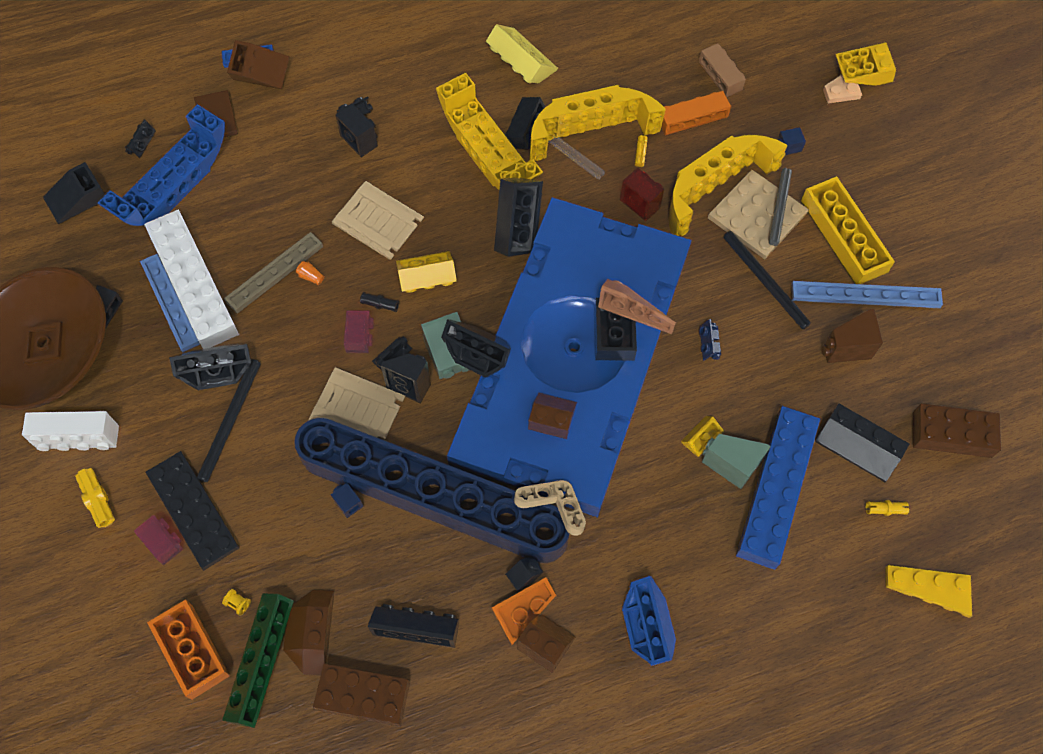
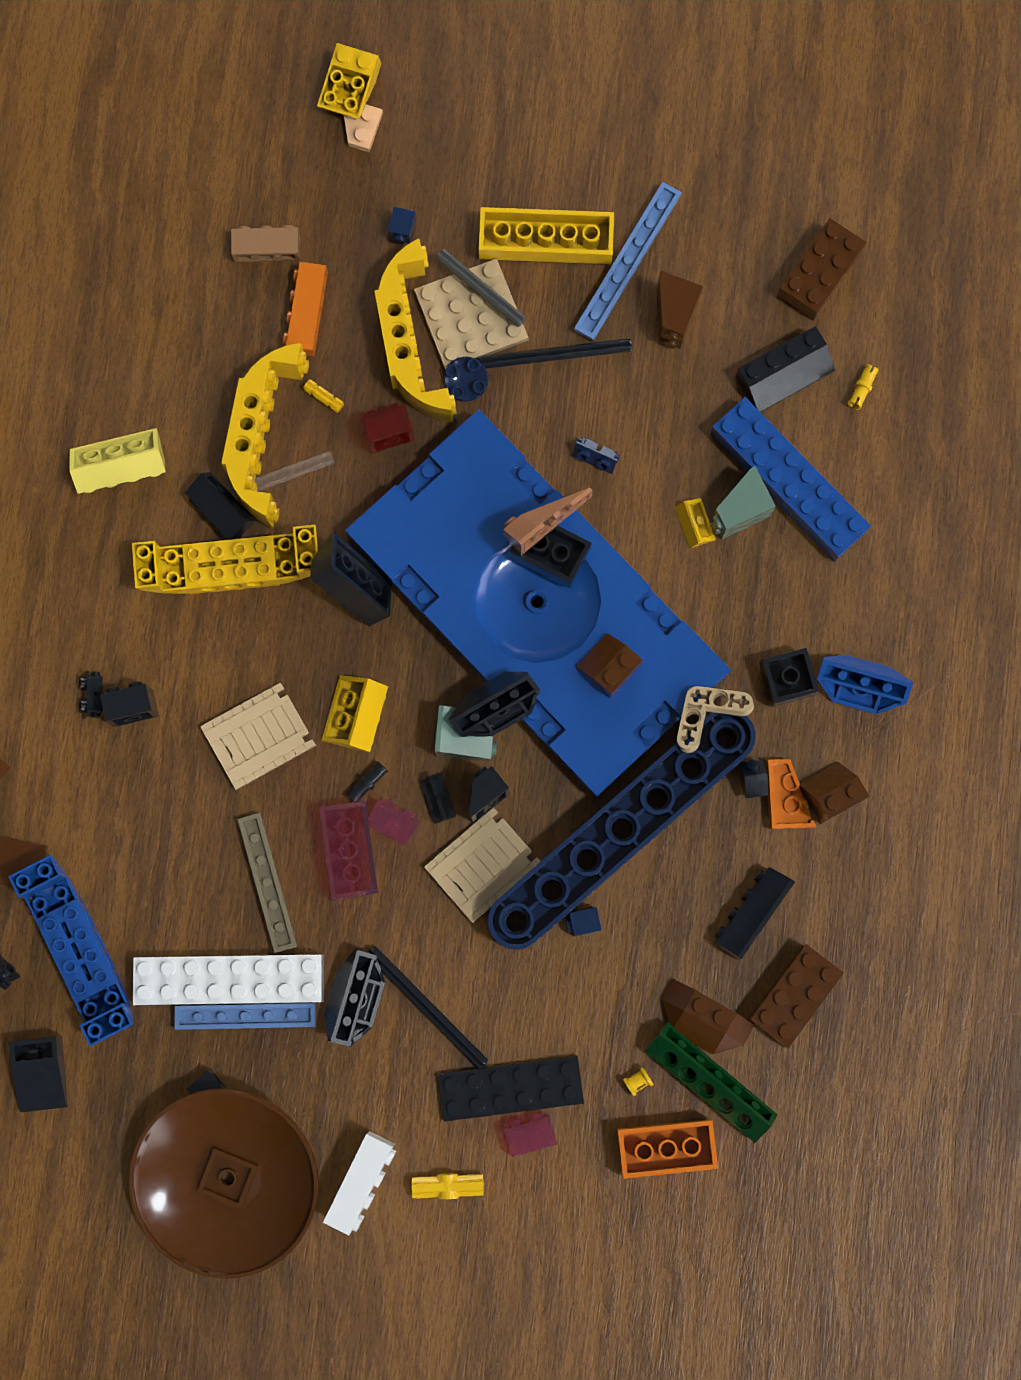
camera: 60 degrees left, 15 degrees up
(308, 272) = (289, 843): orange cone -> none
(319, 307) = (348, 851): none -> clear pink slope
(621, 560) = (789, 677): none -> black brick
(710, 230) = (466, 378): none -> dark blue dish
(941, 588) = (963, 387): yellow wing -> none

